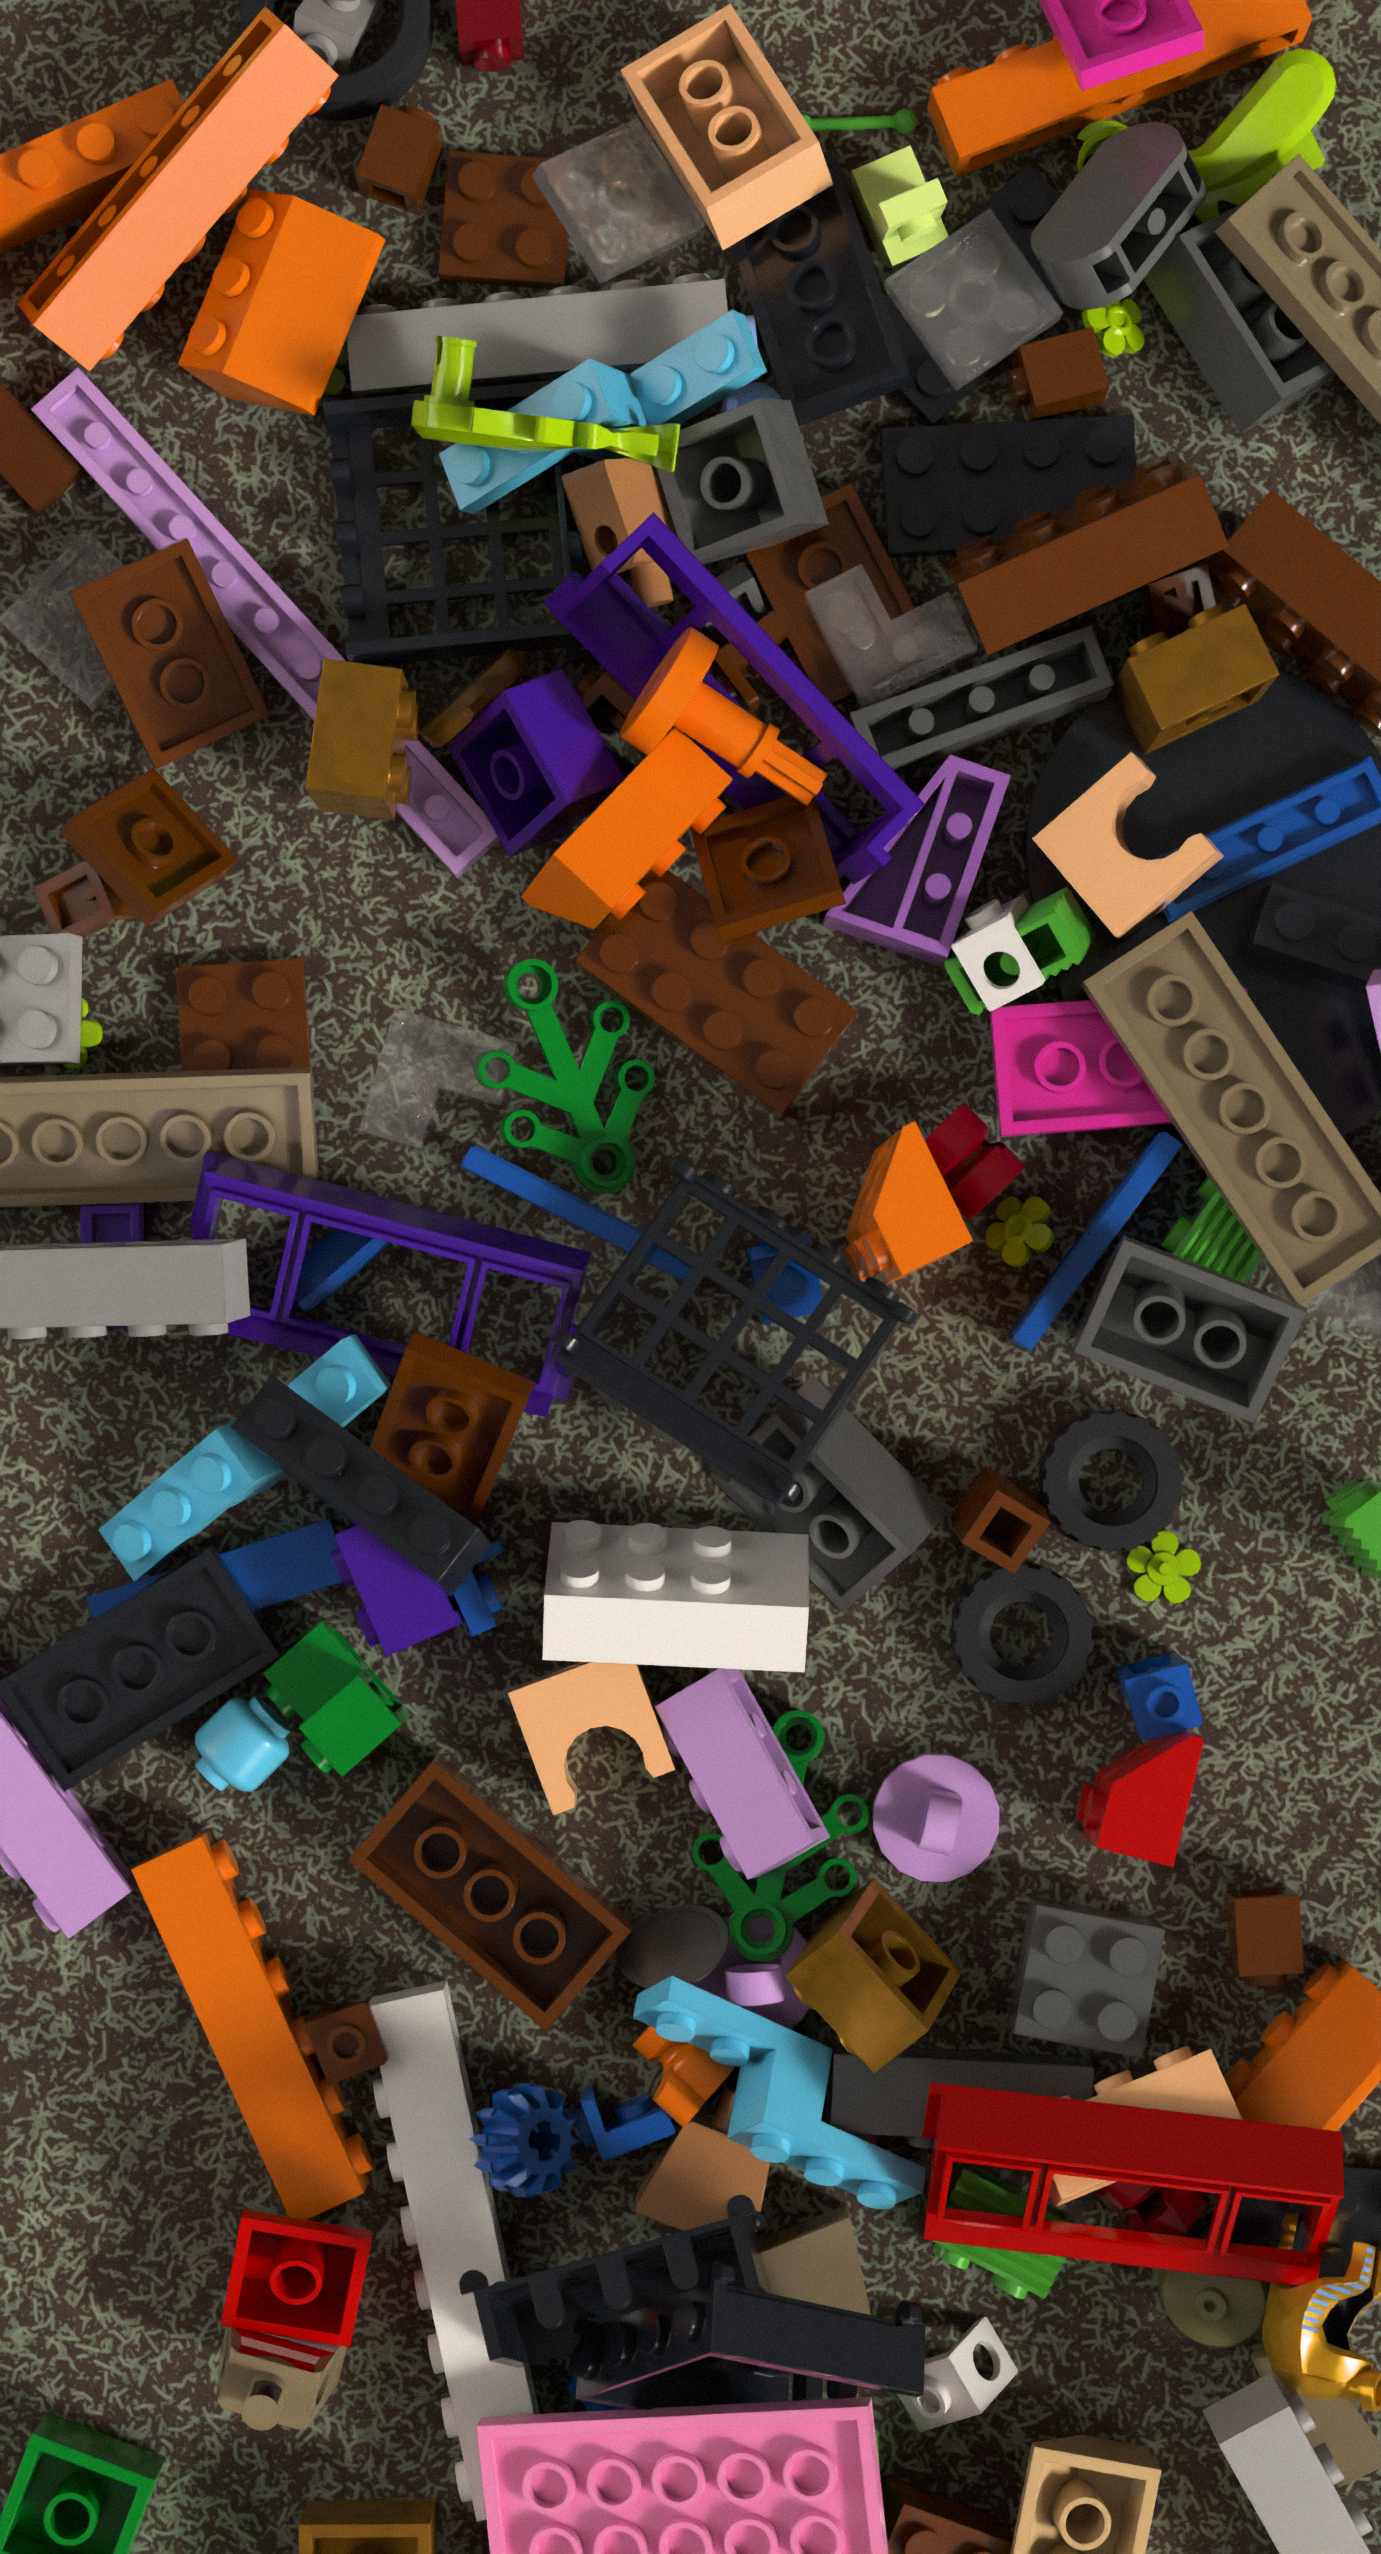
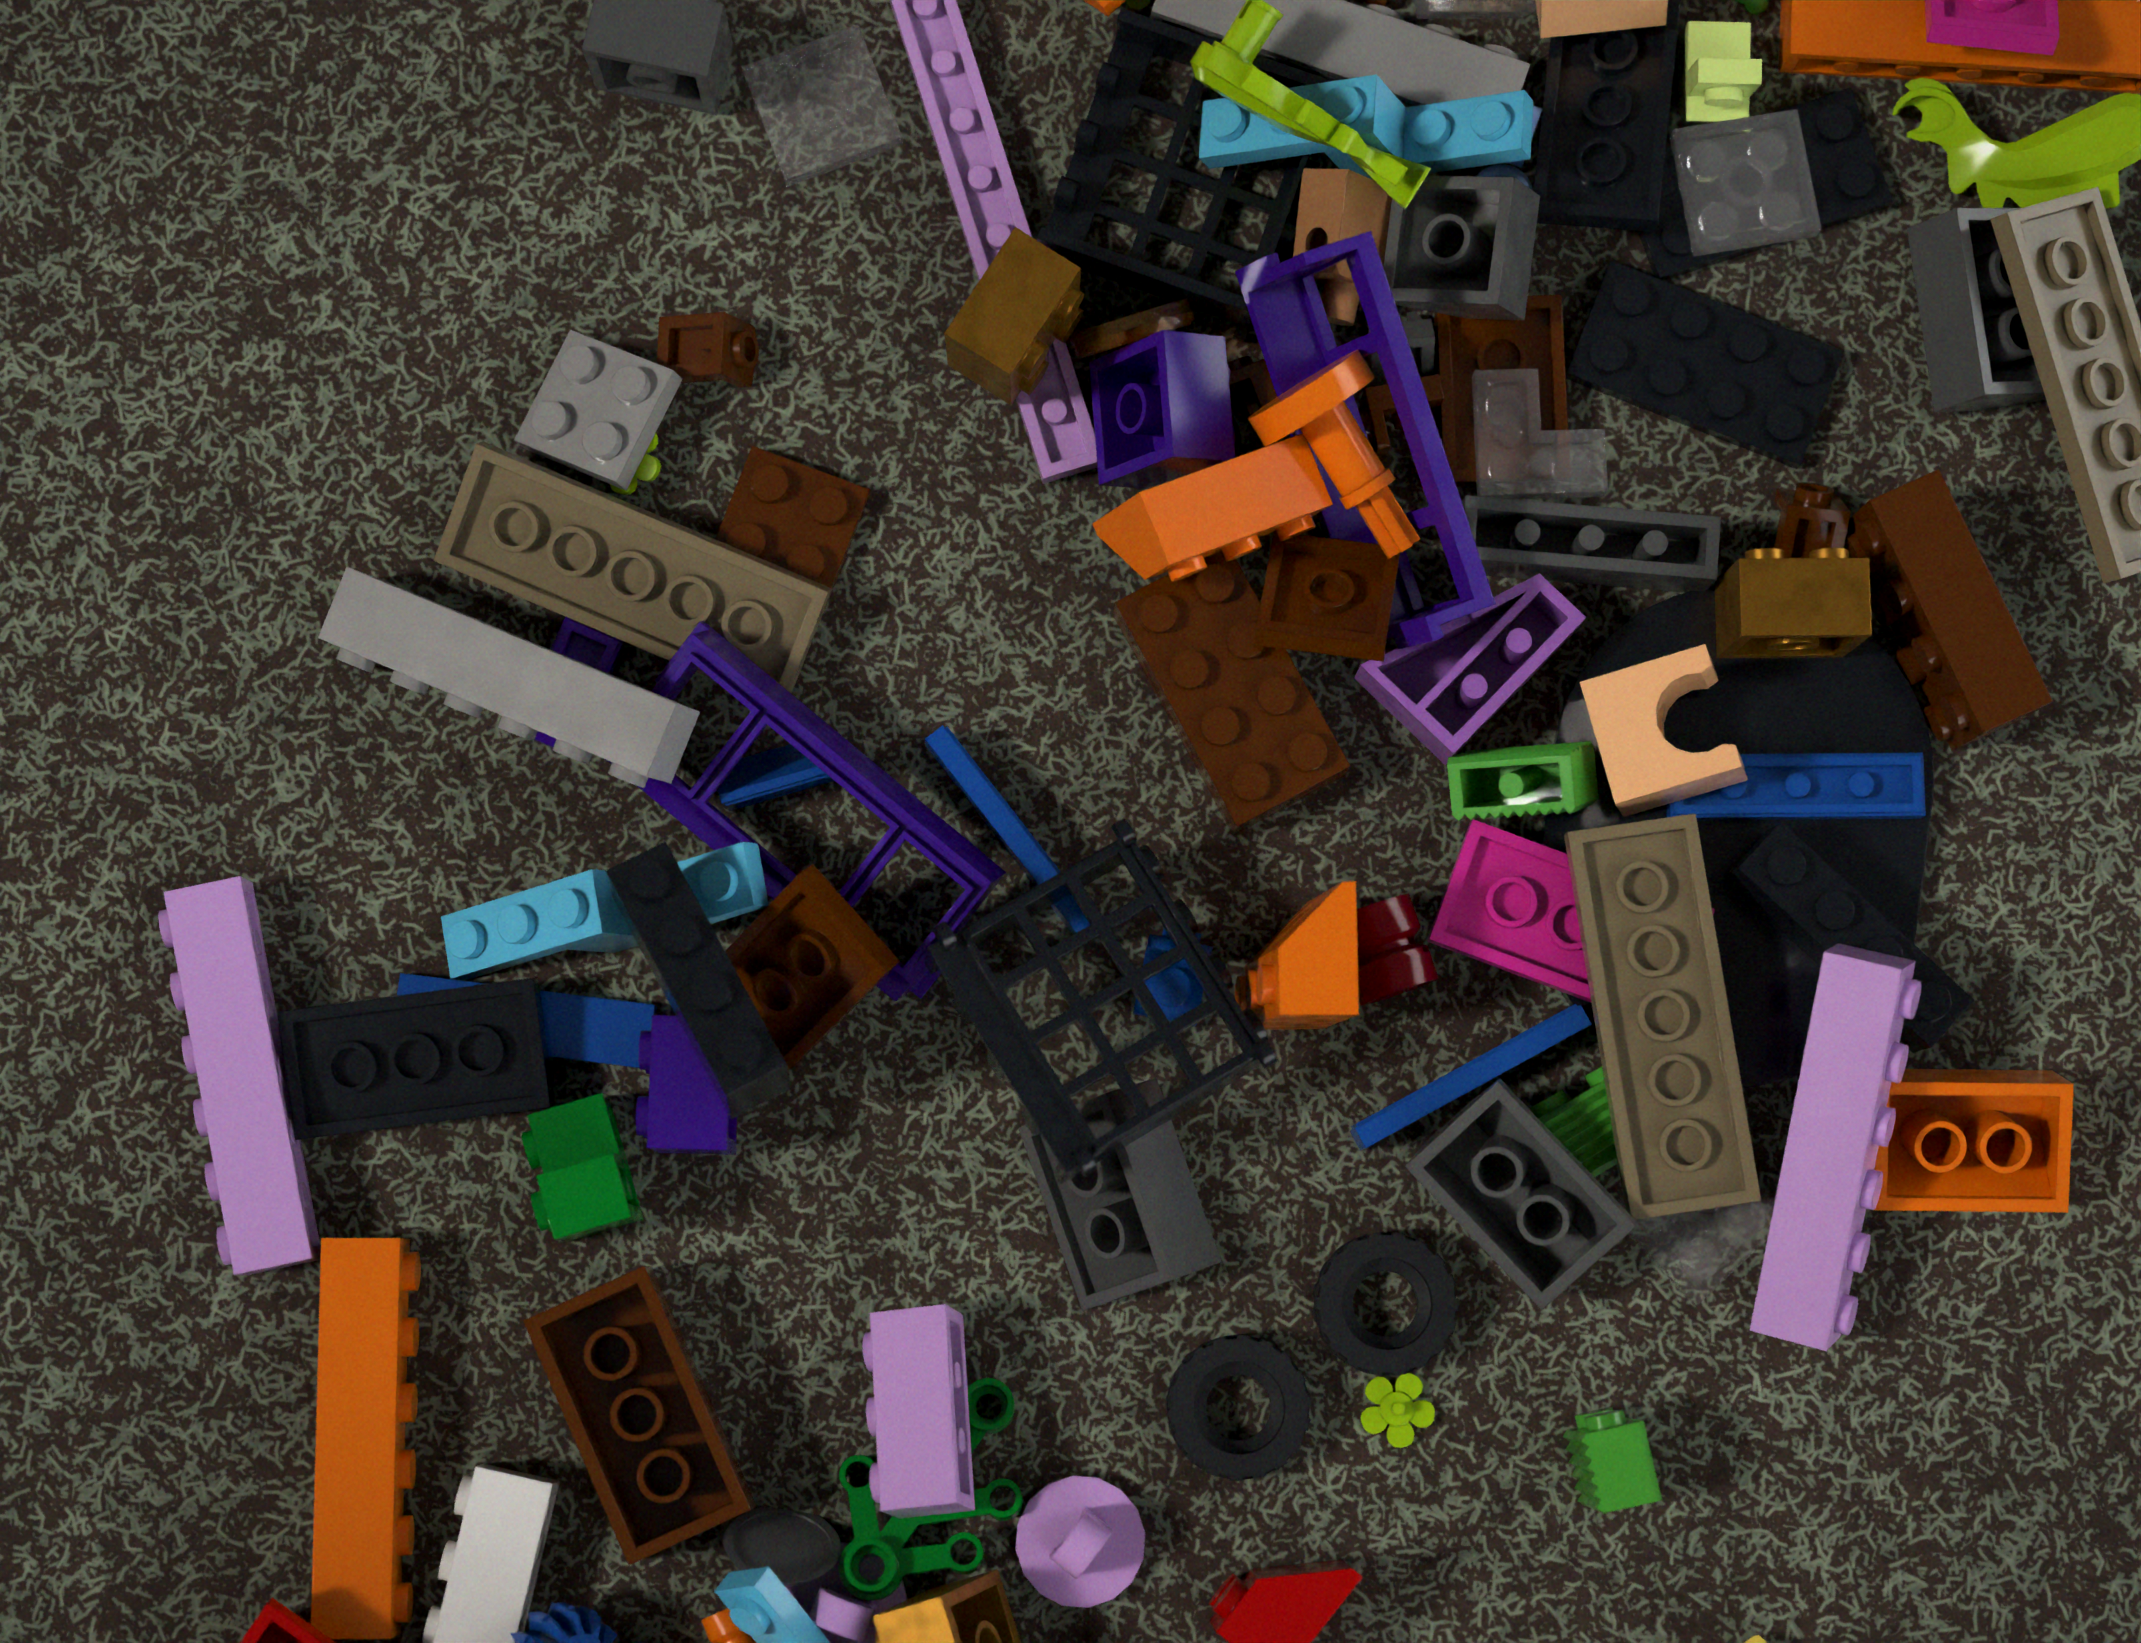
camera: 20 degrees right, 5 degrees down
(149, 846) = (780, 327): reddish brown plate -> none
(169, 653) = (880, 165): reddish brown plate -> none
(242, 1744) = (476, 1173): medium azure head -> none
(346, 2040) = (442, 1489): reddish brown bracket -> none
(416, 1064) = (931, 631): clear plate -> none
(478, 1595) = (756, 1138): blue bracket -> none
(573, 1086) = (1059, 716): green plant -> none
(583, 1697) = (811, 1274): light nougat piece -> none
(676, 1596) = (936, 1220): white brick -> none
(990, 931) = (1503, 748): white bracket -> none
(1000, 1520) = (1266, 1290): reddish brown brick -> none
(1020, 1229) = (1408, 1034): lime plant -> none
(1058, 375) = (1792, 285): reddish brown brick -> none
(1086, 553) = (1745, 451): reddish brown brick -> none
(1116, 327) = (1864, 262): lime plant -> none
(1118, 215) = (1910, 167): dark grey brick -> none
(1159, 1695) = (1339, 1523): blue bracket -> none

